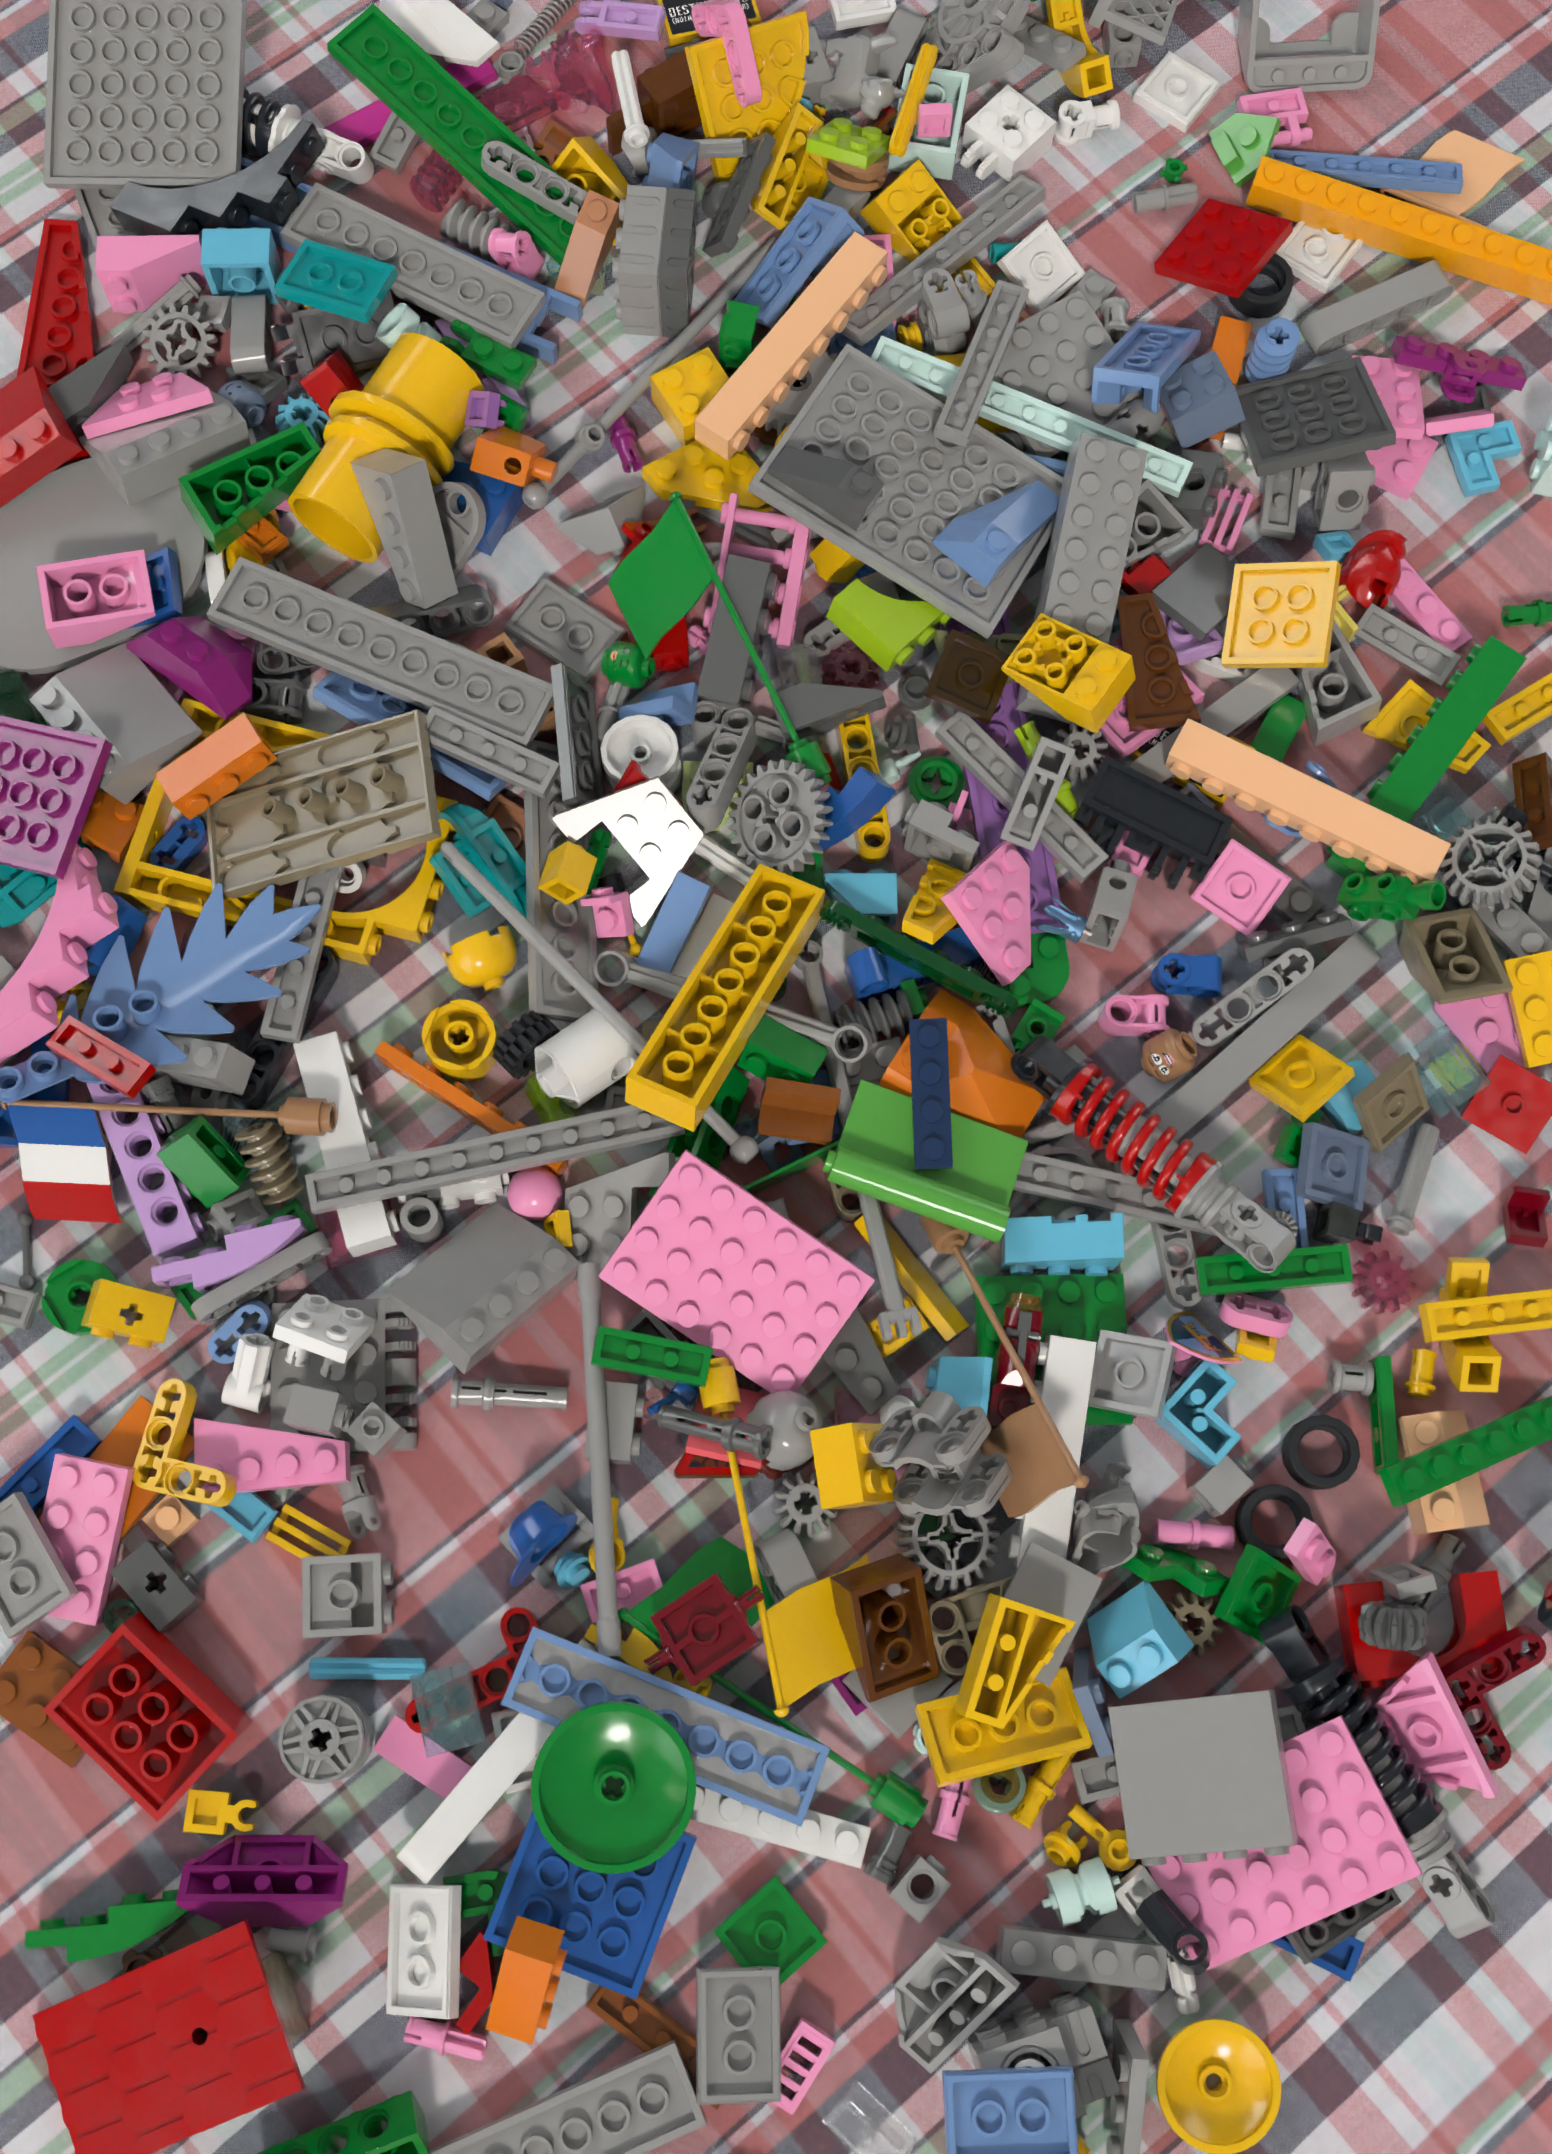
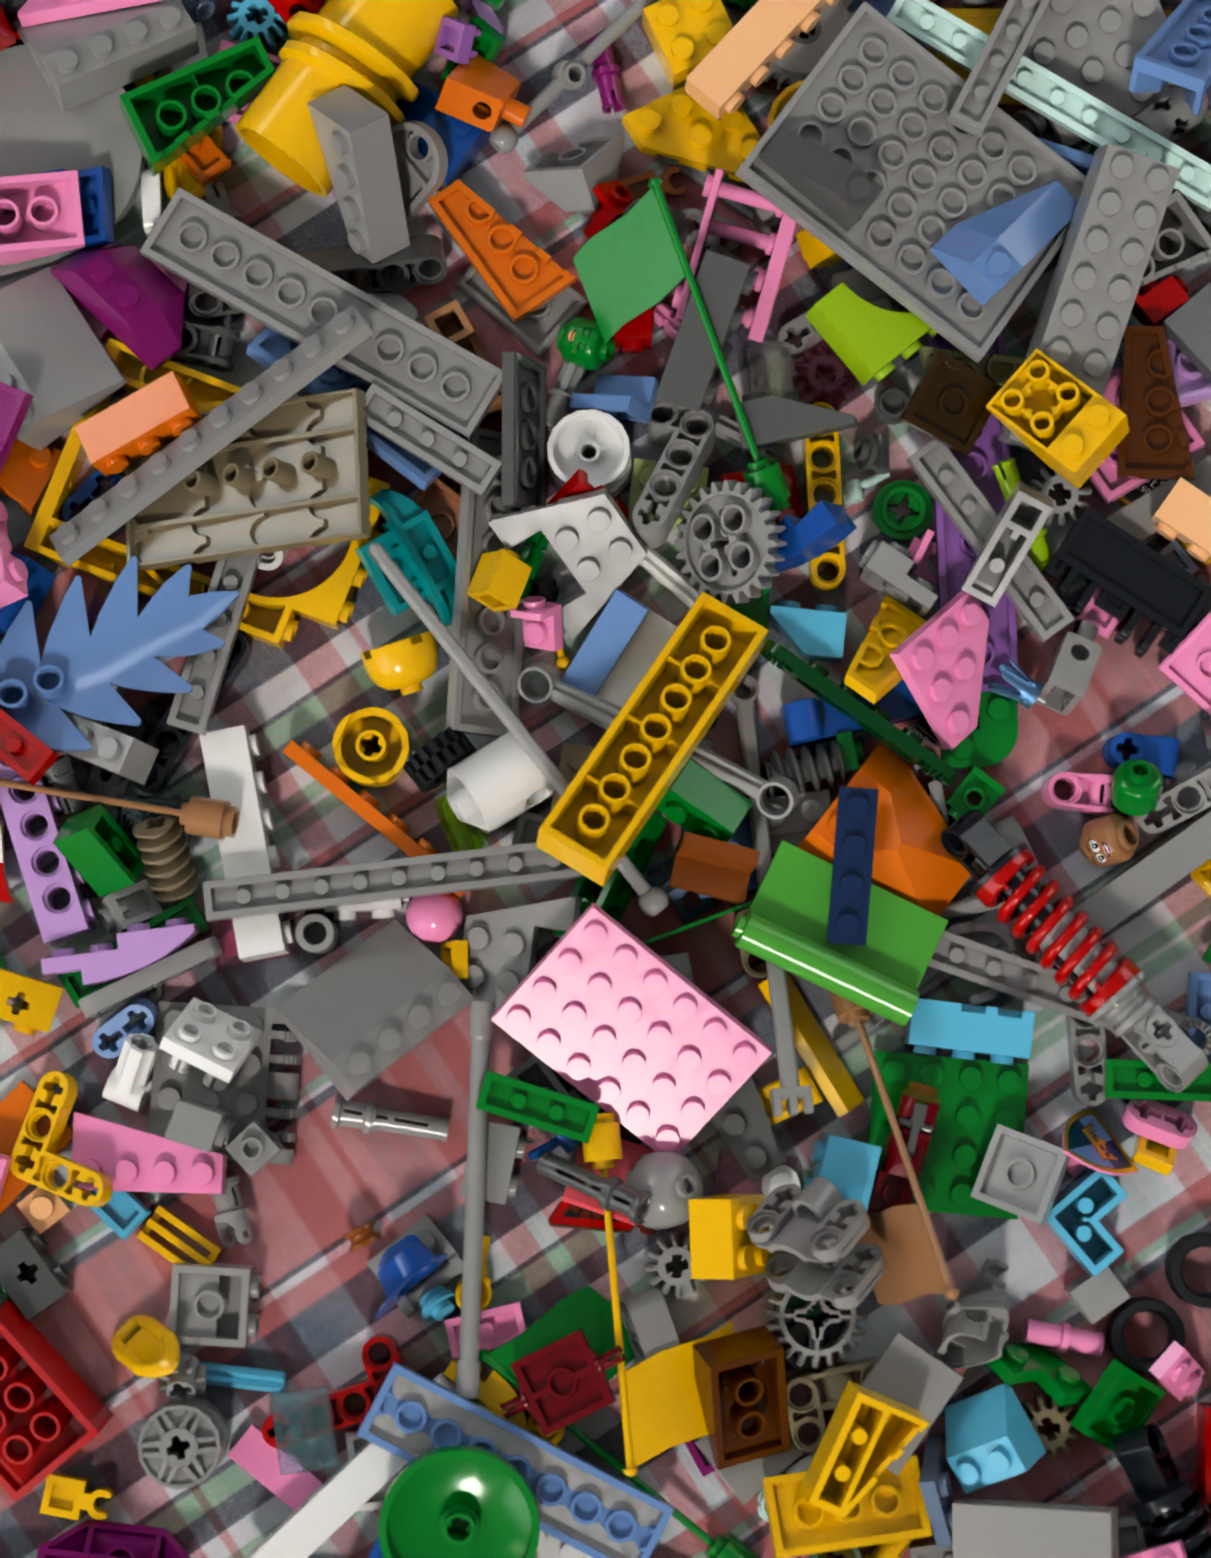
camera: 10 degrees right, 10 degrees up
(272, 775) = (210, 434): none -> light grey plate
(281, 1644) = (146, 1347): none -> yellow piece
(320, 1671) = (186, 1380): none -> light grey gear
(490, 1511) = (362, 1236): none -> dark orange bush
(545, 598) = (508, 263): none -> orange wing
(1065, 1393) = (948, 1194): white brick -> none
(1188, 1000) = (1136, 787): none -> green head

